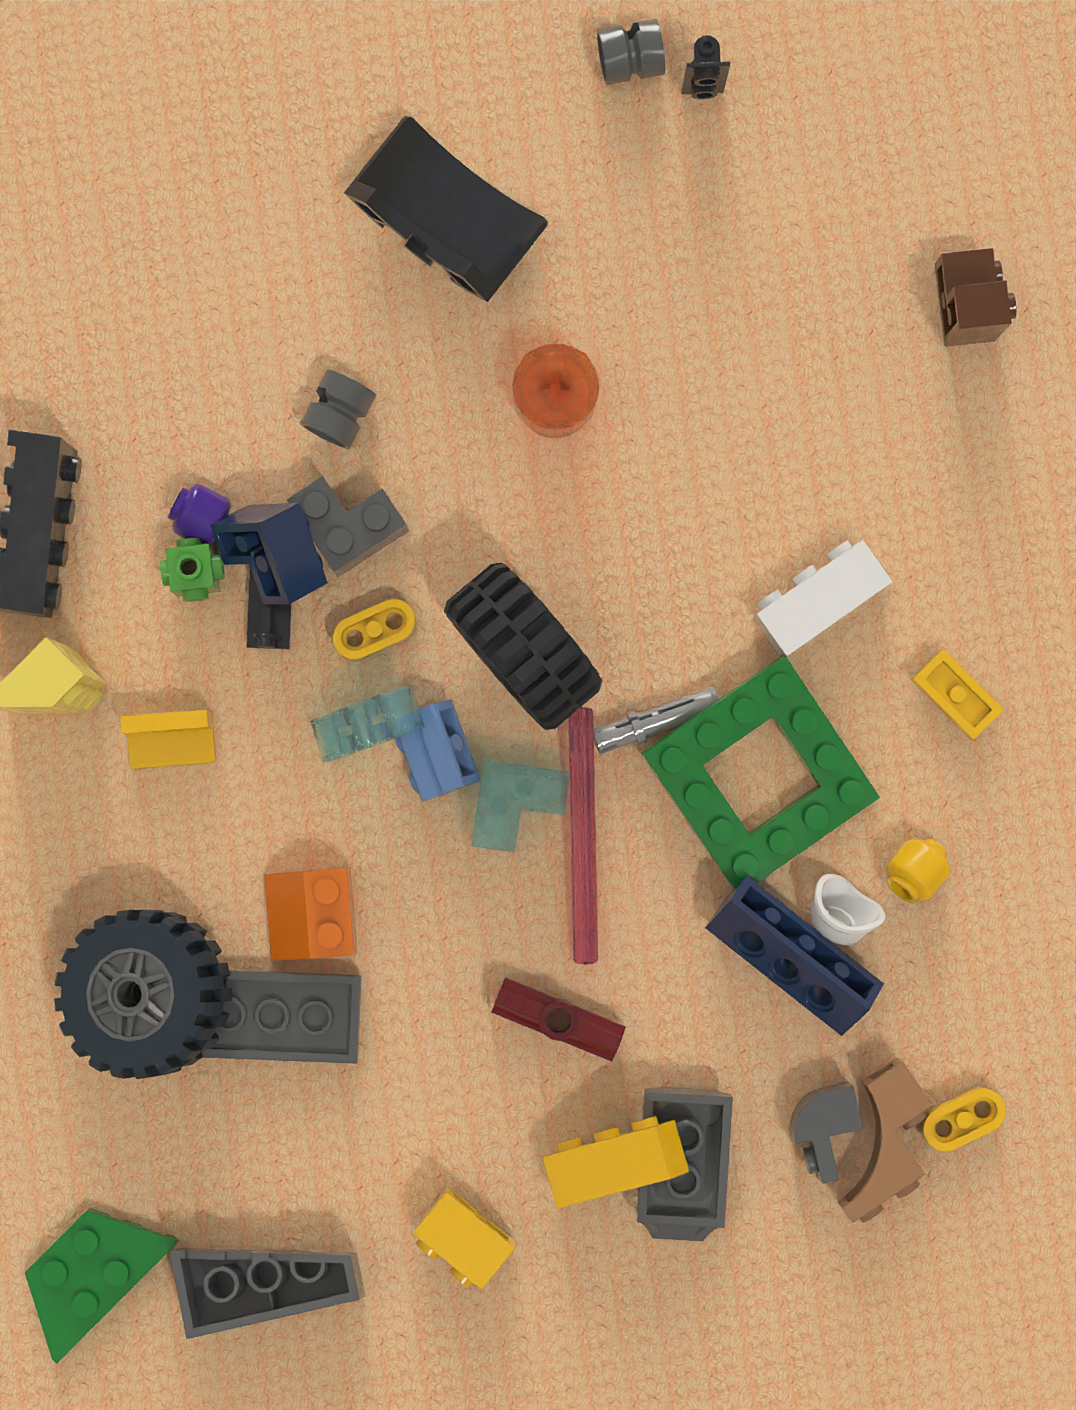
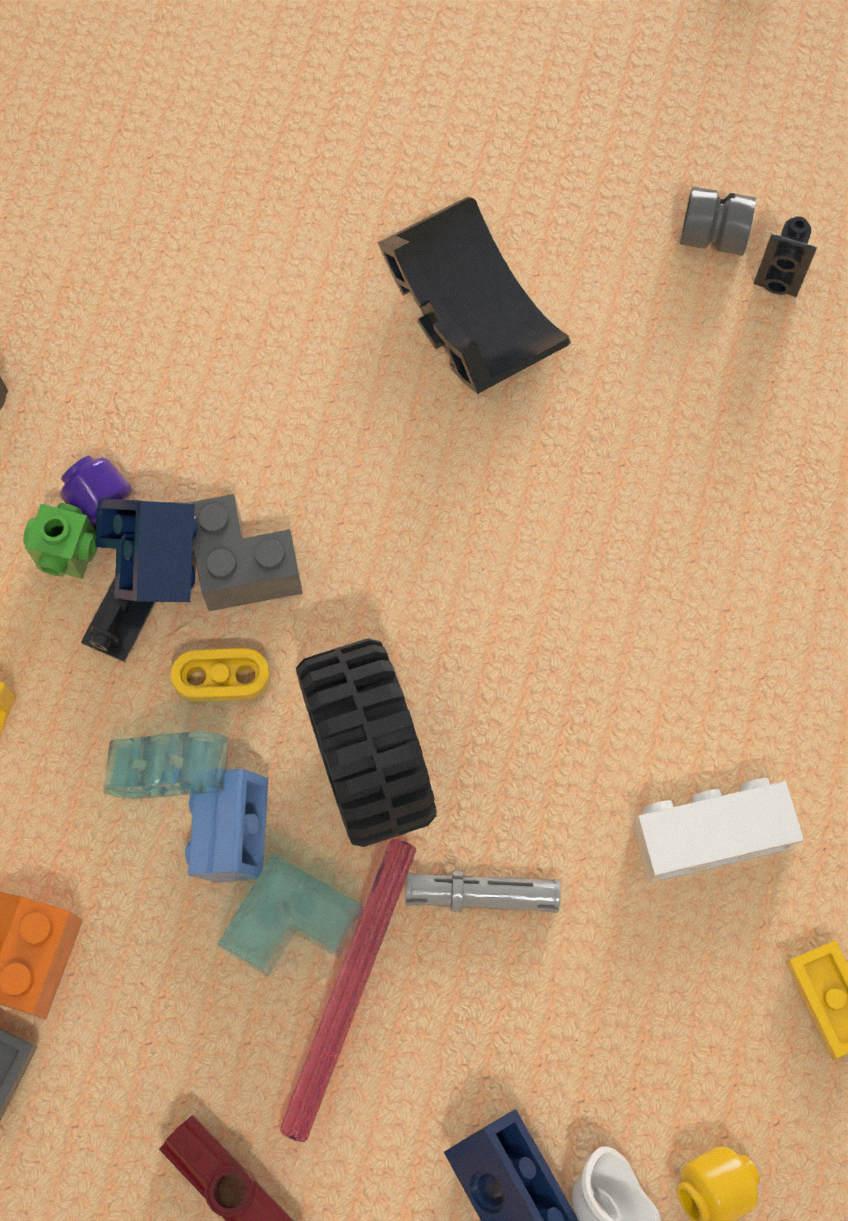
camera: 25 degrees right, 15 degrees down
(338, 409) = (286, 437): dark grey wheel -> none
(562, 366) = (516, 481): clear orange brick -> none
(768, 694) = (654, 1063): green plate -> none

